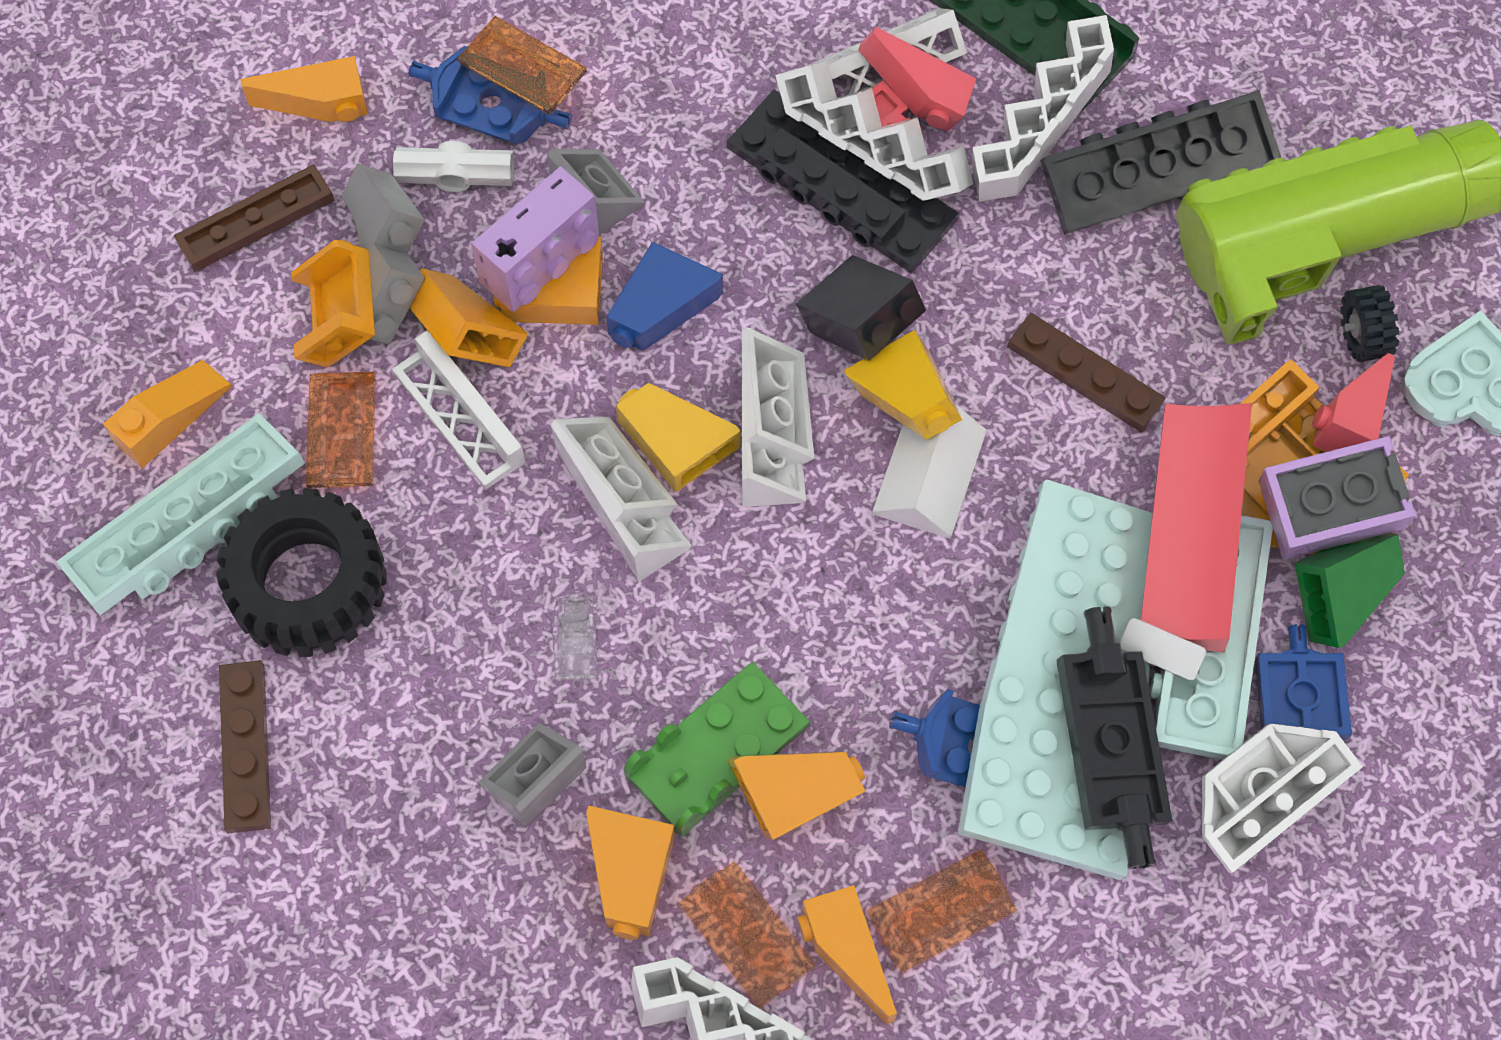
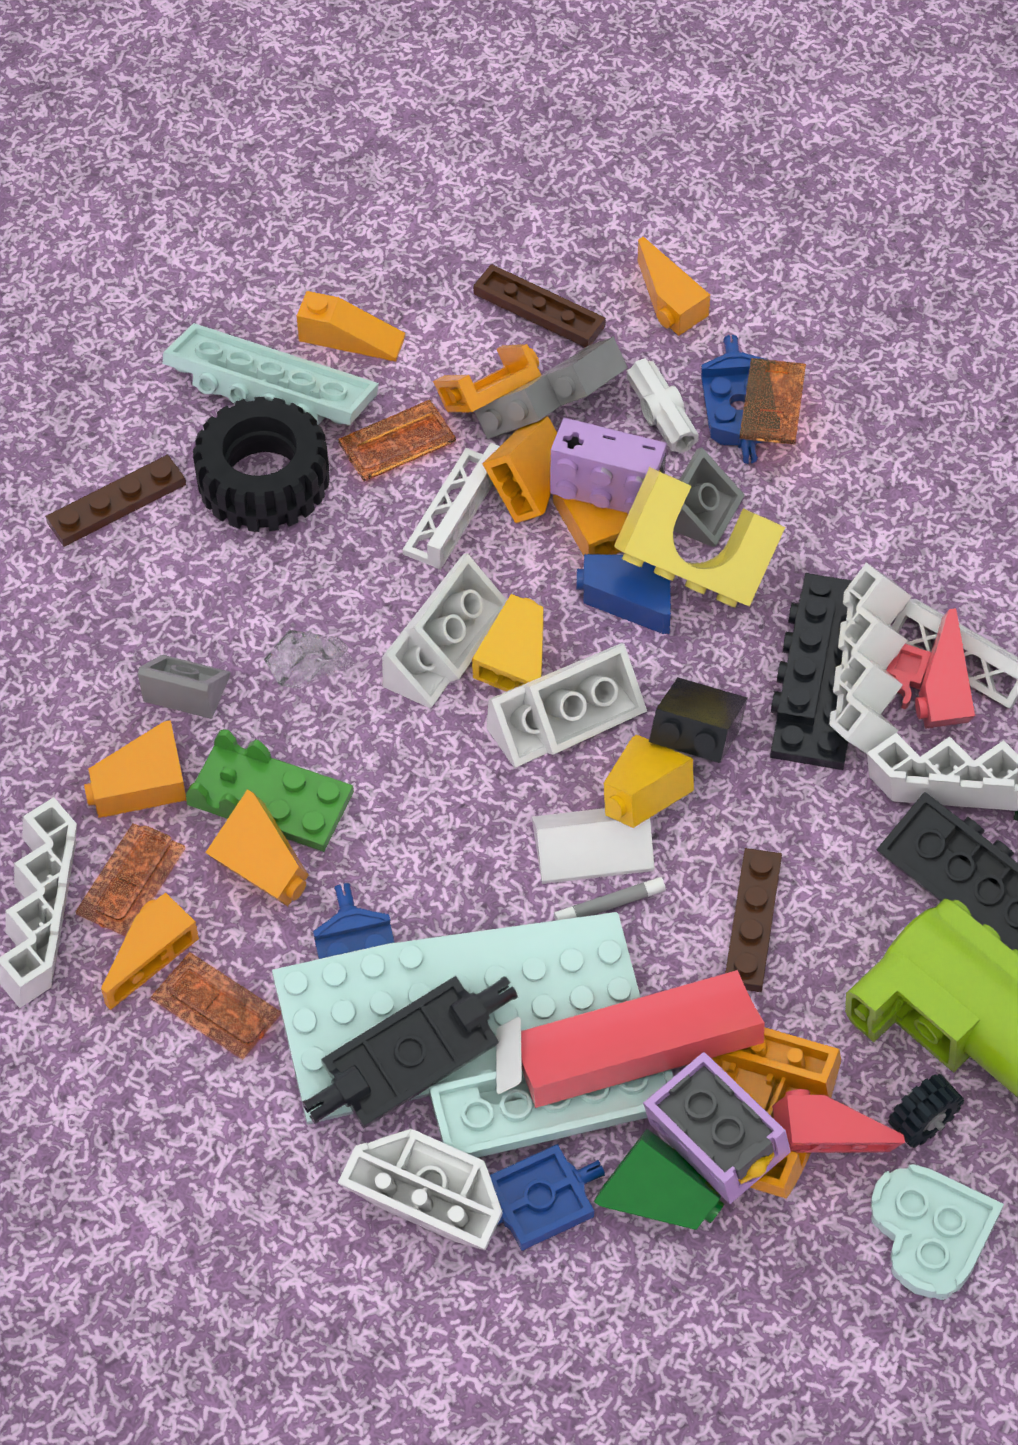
camera: 65 degrees right, 10 degrees down
(705, 202) = (731, 574): none -> light yellow arch
(1004, 487) = (612, 900): none -> light grey bar

